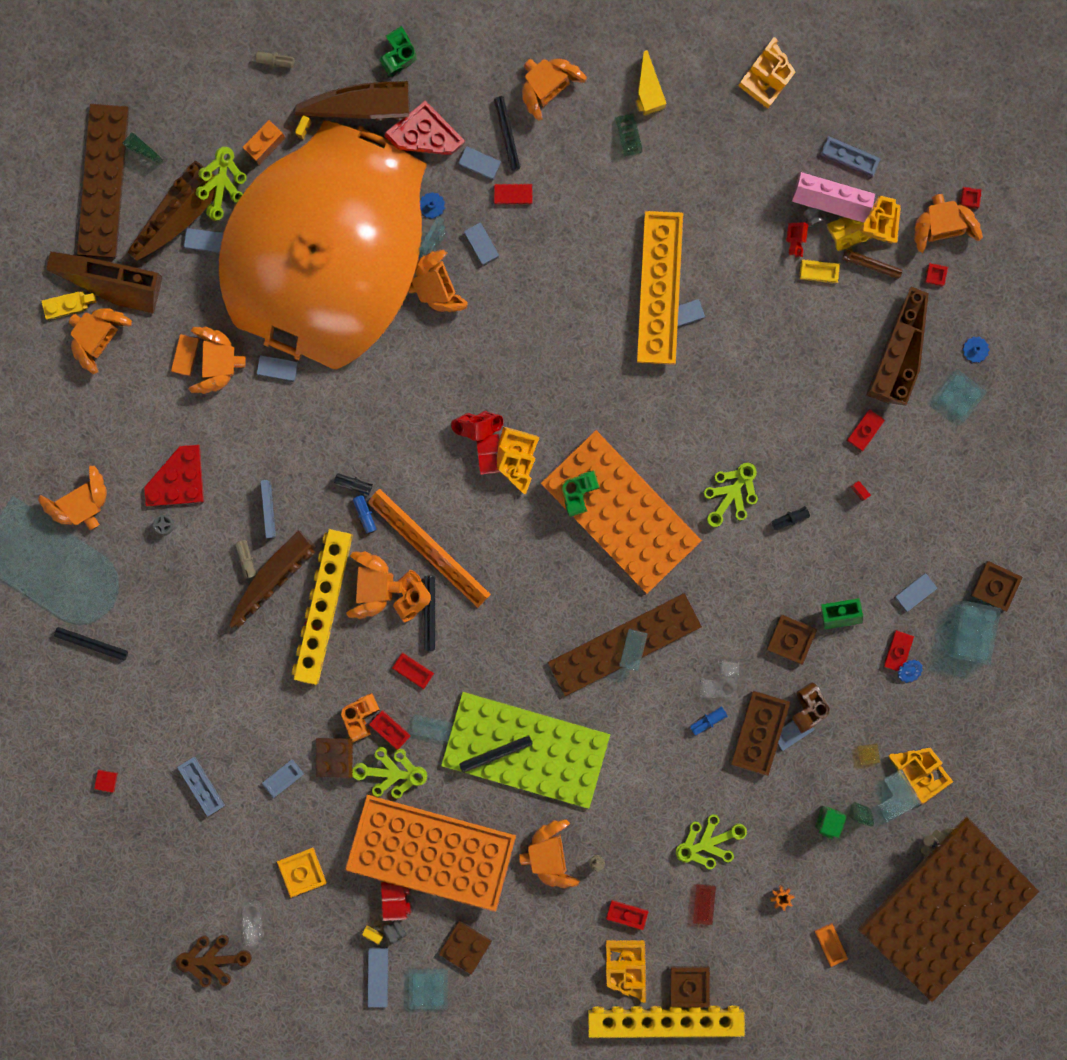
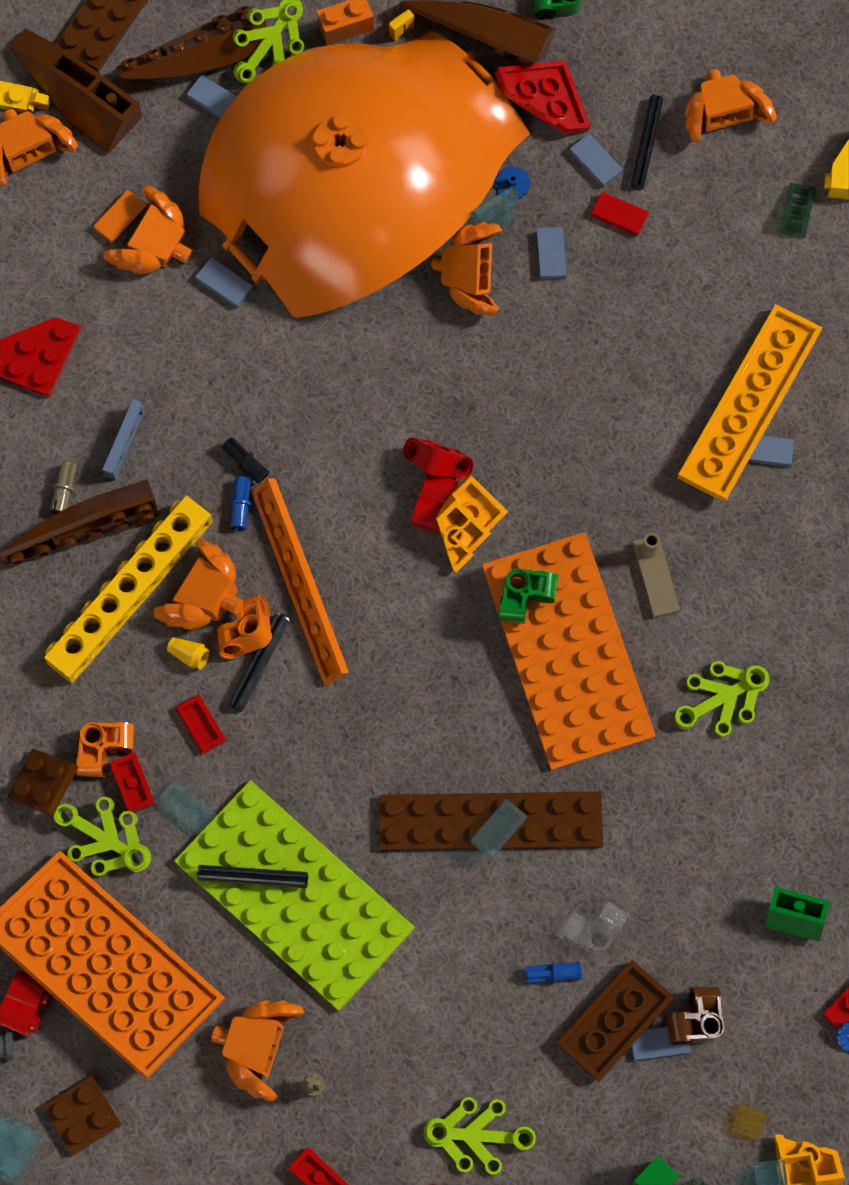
camera: 30 degrees right, 15 degrees down
(382, 629) = (189, 652): none -> yellow cone
(653, 434) = (656, 576): none -> dark tan piece
(791, 518) = (786, 763): black axle -> none
(791, 639) = (714, 918): reddish brown plate -> none

